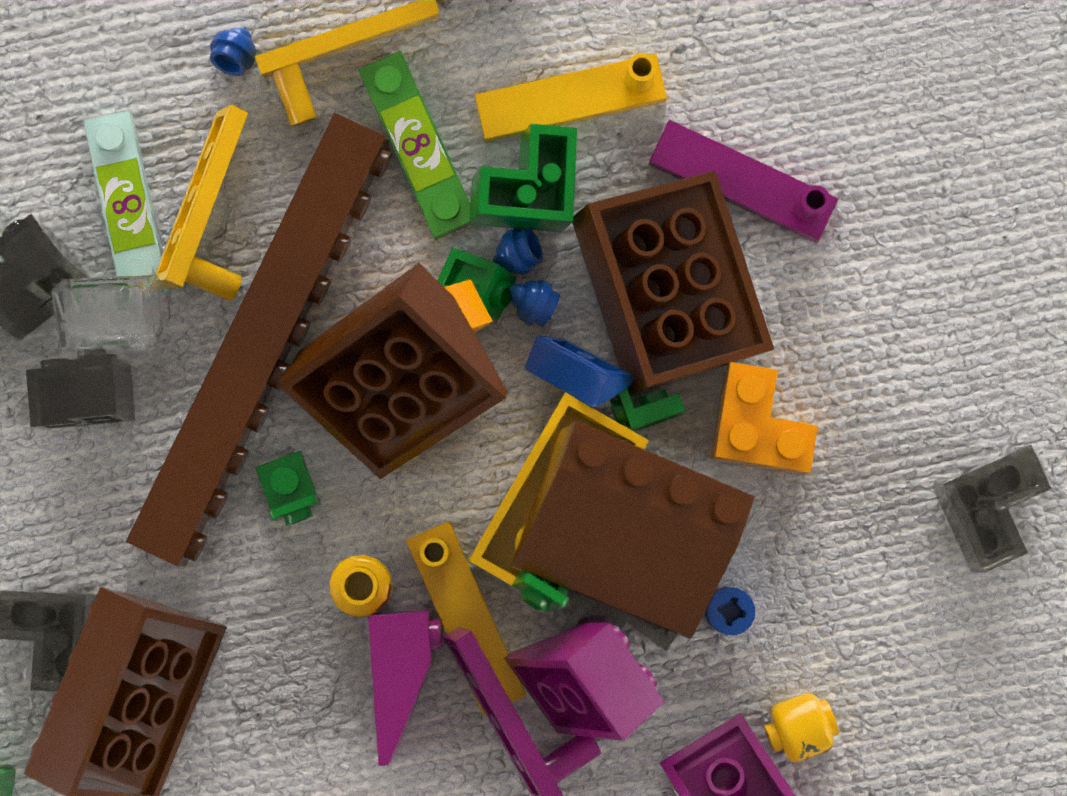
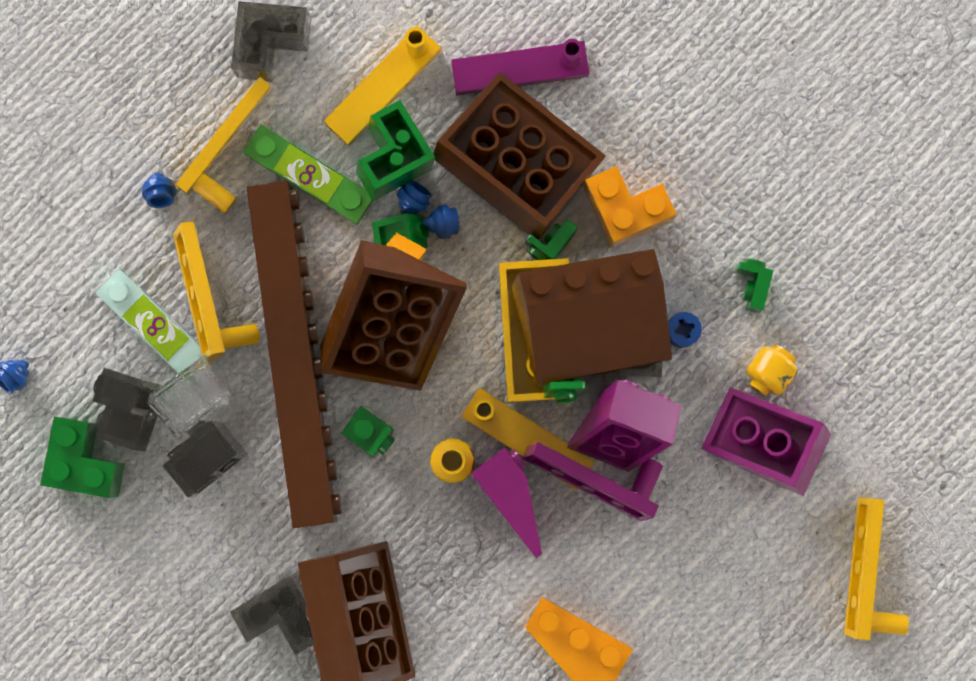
camera: 30 degrees left, 0 degrees up
(576, 370) = (496, 246): blue slope -> none
(845, 623) = (756, 290): none -> green bracket
(979, 504) = (788, 166): clear smoke brick -> none

